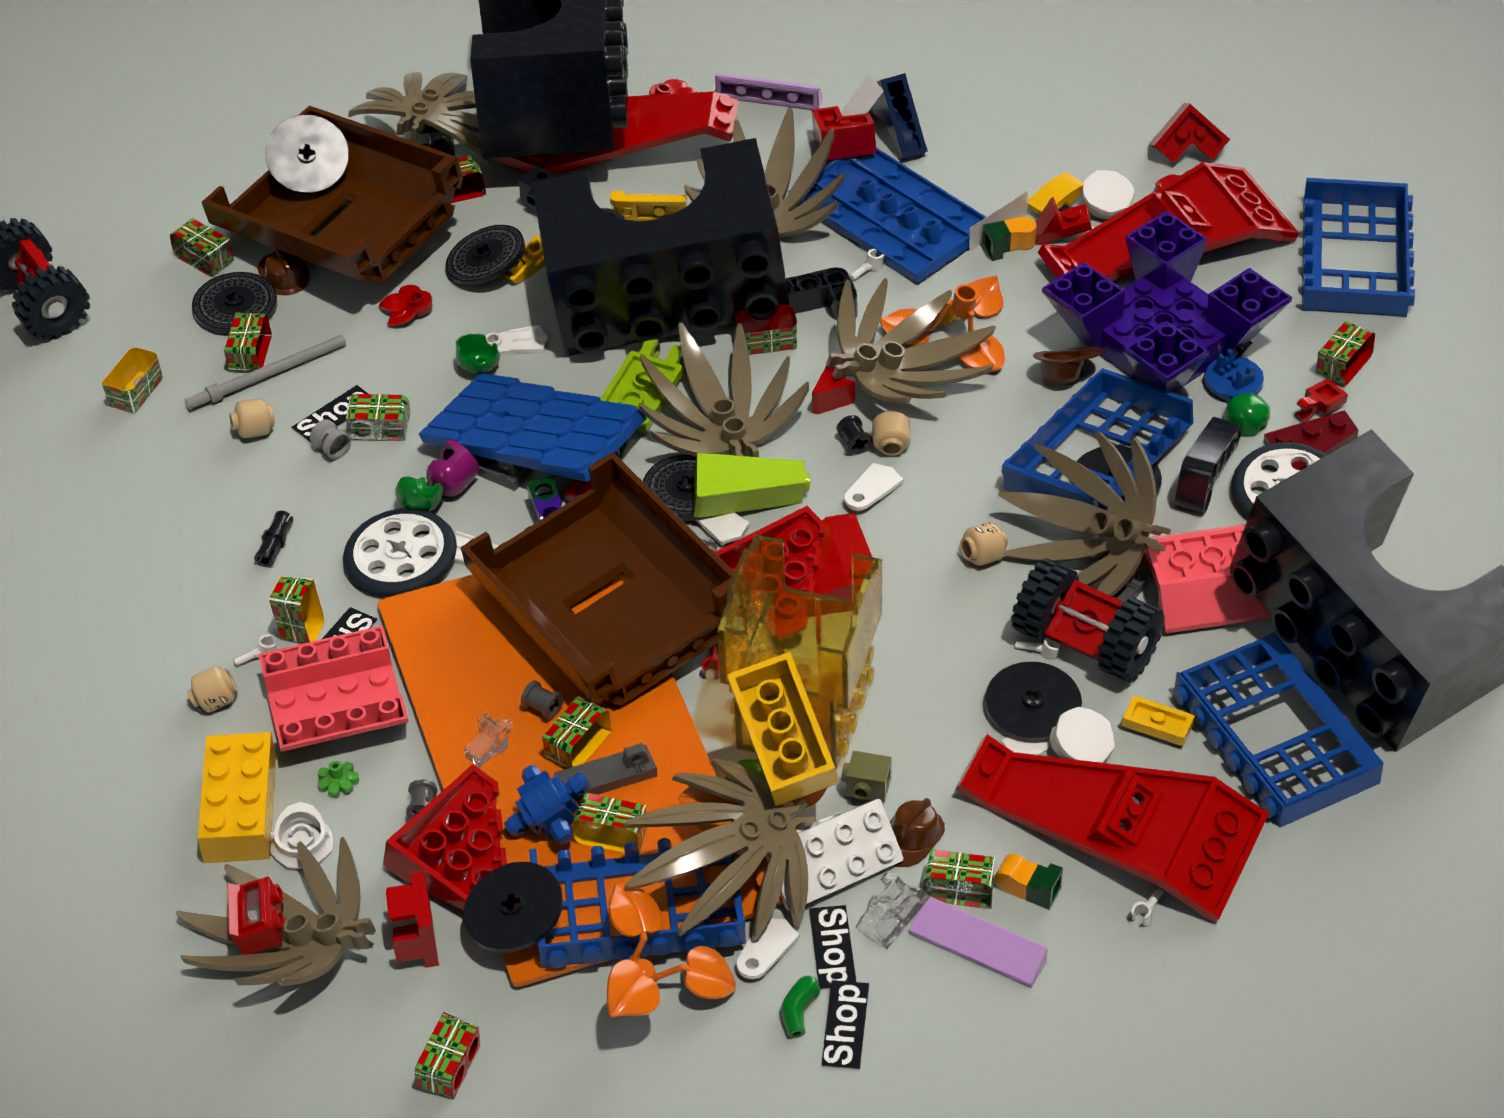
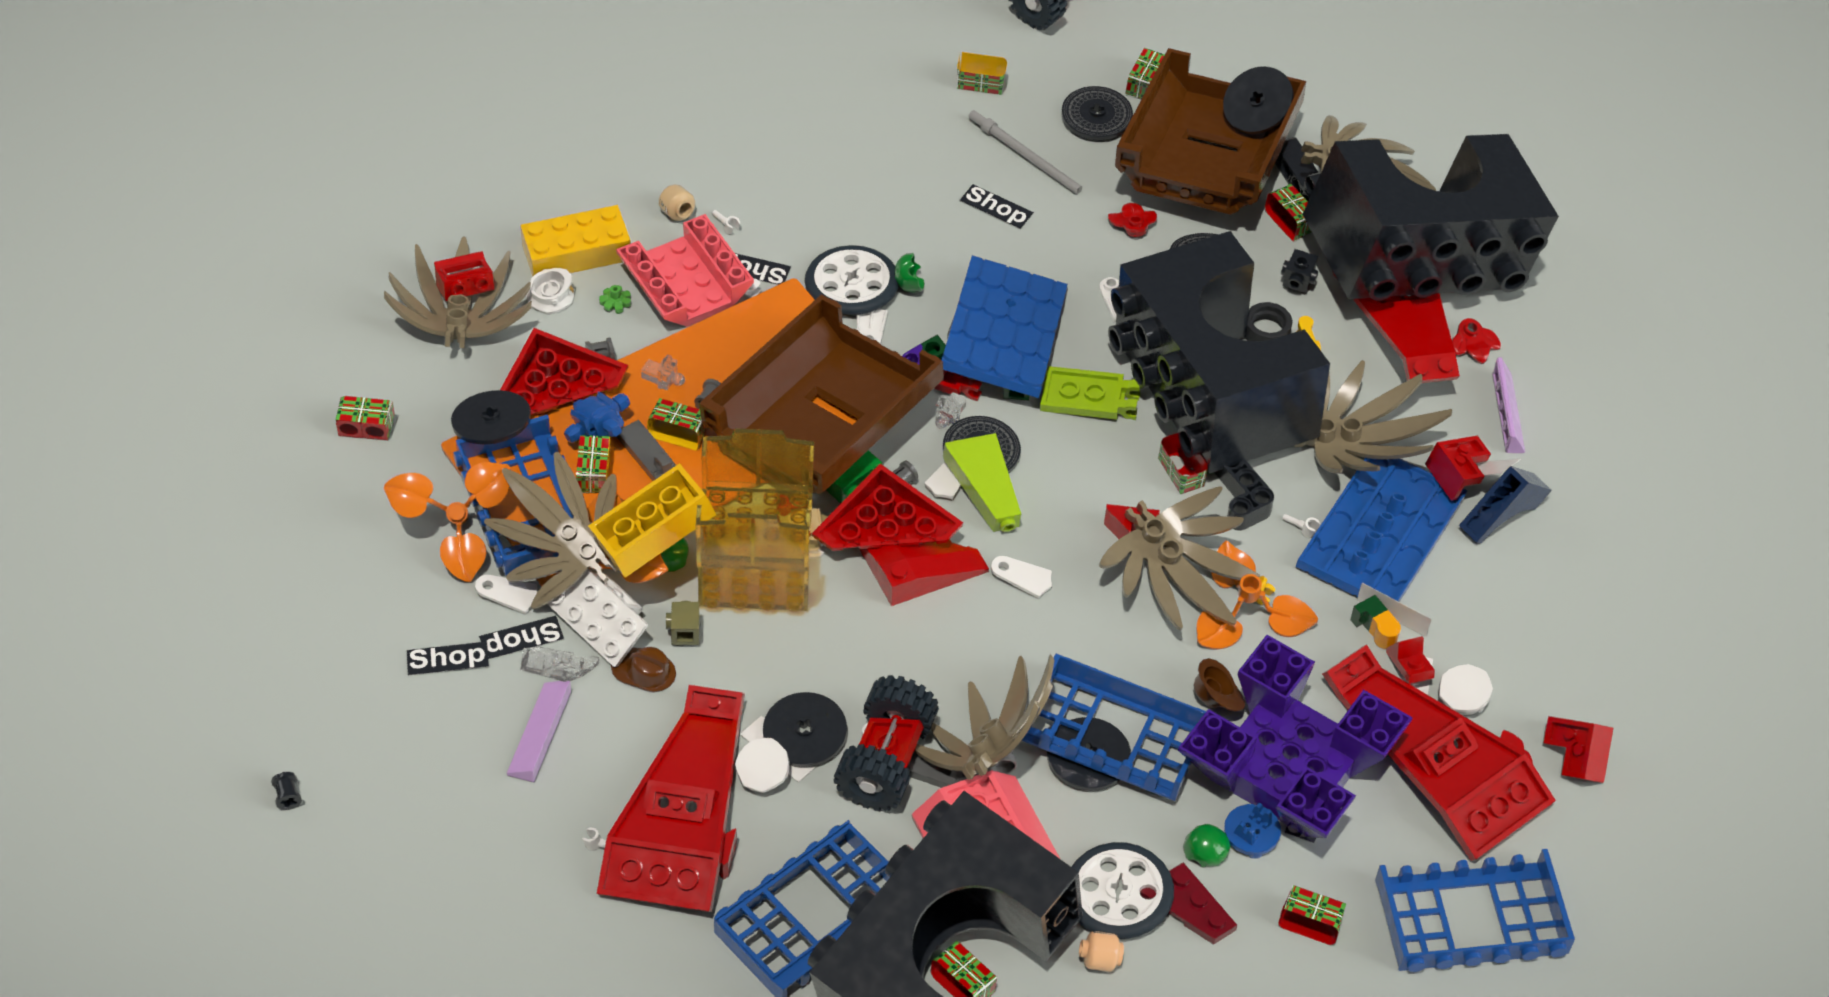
camera: 70 degrees right, 5 degrees up
(245, 347) = (1048, 130): piece -> none
(252, 418) = (963, 154): tan head -> none
(273, 538) = (843, 201): black pin -> none
(297, 609) = (755, 242): piece -> none
(332, 440) = (957, 207): light grey wheel -> none
(378, 417) = (989, 229): piece -> none
(417, 939) = (476, 368): red panel -> none
(452, 472) = (942, 290): magenta helmet -> none
(475, 353) = (1083, 273): green hair -> none
(727, 421) = (1064, 457): dark tan plant -> none
(796, 1002) = (454, 619): green arm -> none
(851, 429) = (1077, 549): black bush -> none
(891, 432) = (1085, 574): tan head -> none
(960, 878) = (596, 704): piece -> none
(983, 544) = (970, 662): tan head -> none
(1029, 880) = (607, 753): leg -> none
(1063, 188) = (1451, 648): yellow slope -> none
(1158, 720) = (803, 821): yellow plate -> none
(1205, 463) = (1126, 813): black beam -> none
(1323, 397) = (1245, 904): red plate -> none

